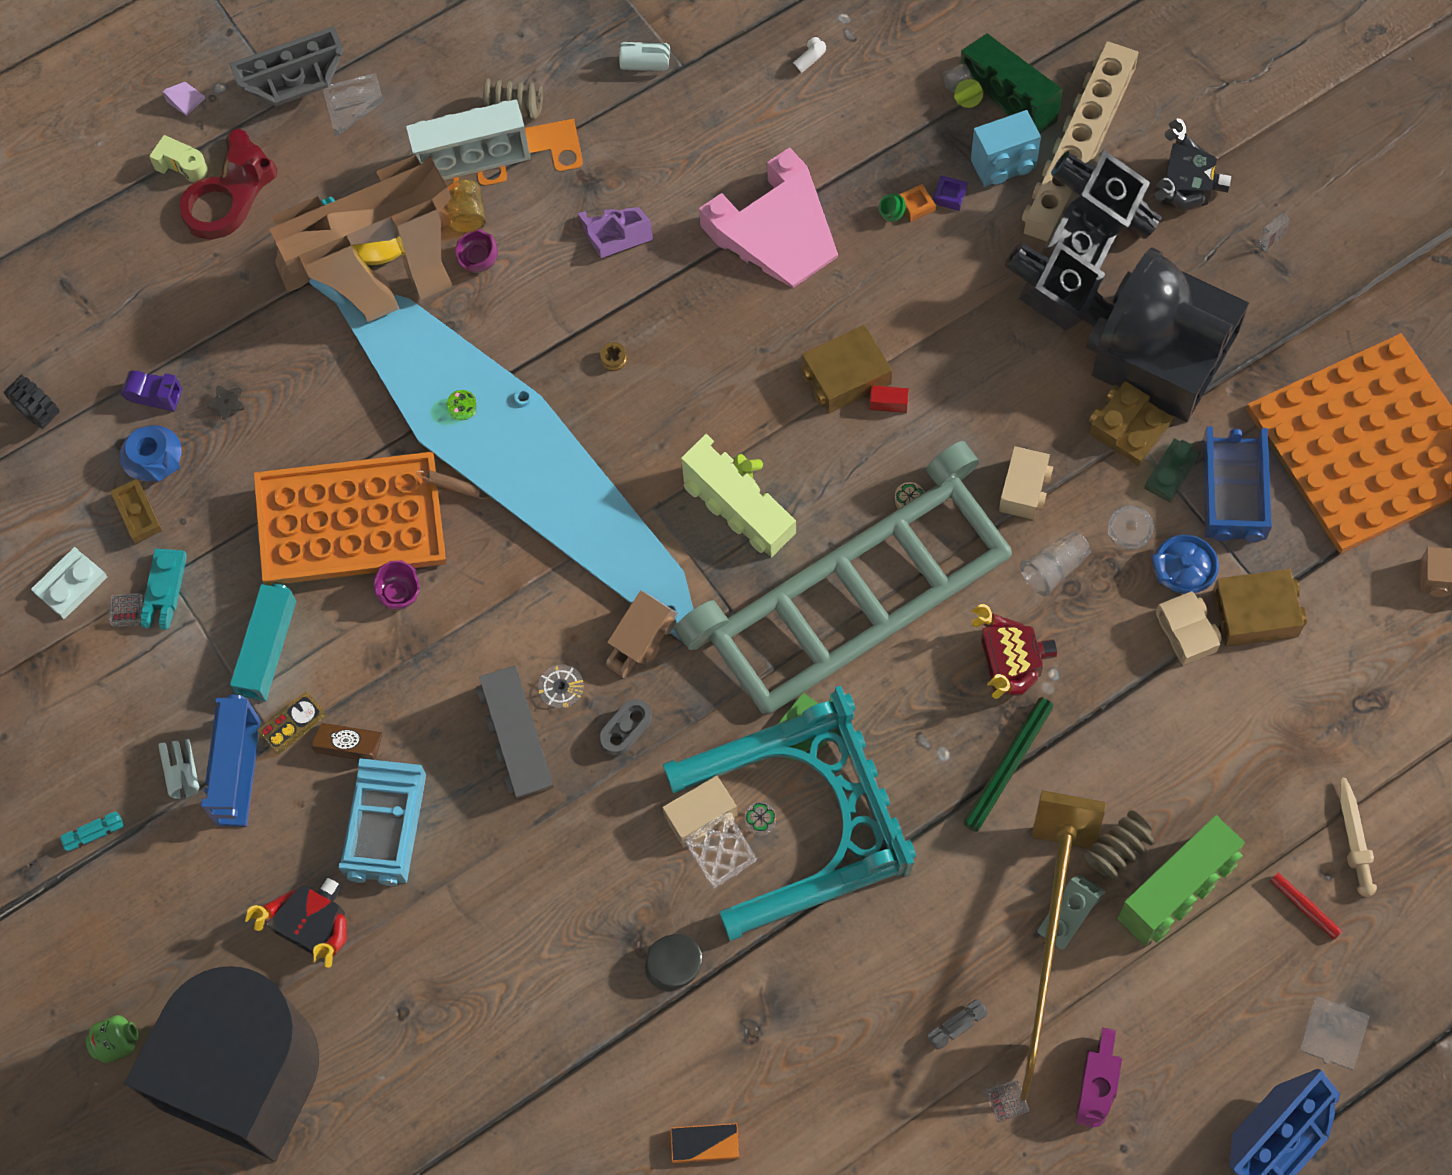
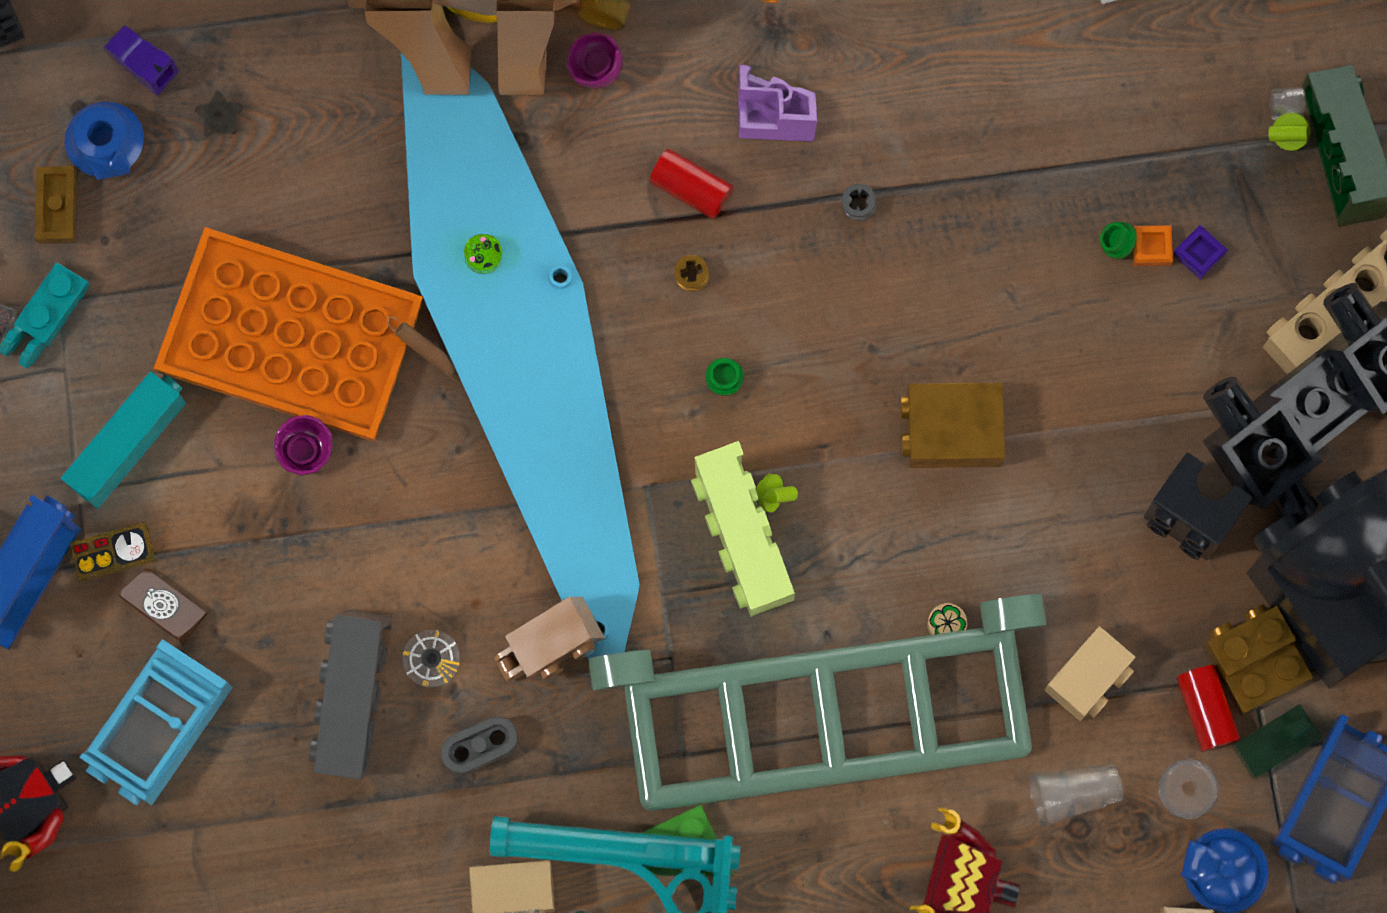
camera: 25 degrees right, 10 degrees up
(583, 300) = (690, 183): none -> red brick
(671, 410) = (724, 376): none -> green plate
(701, 254) = (860, 189): none -> dark grey bush
(780, 230) = (971, 206): bright pink wedge -> none
(889, 399) = (987, 487): red piece -> none
(1005, 148) = (1292, 233): medium azure brick -> none
(1037, 349) = (1189, 516): none -> black piece
(1114, 469) = (1208, 708): none -> red brick

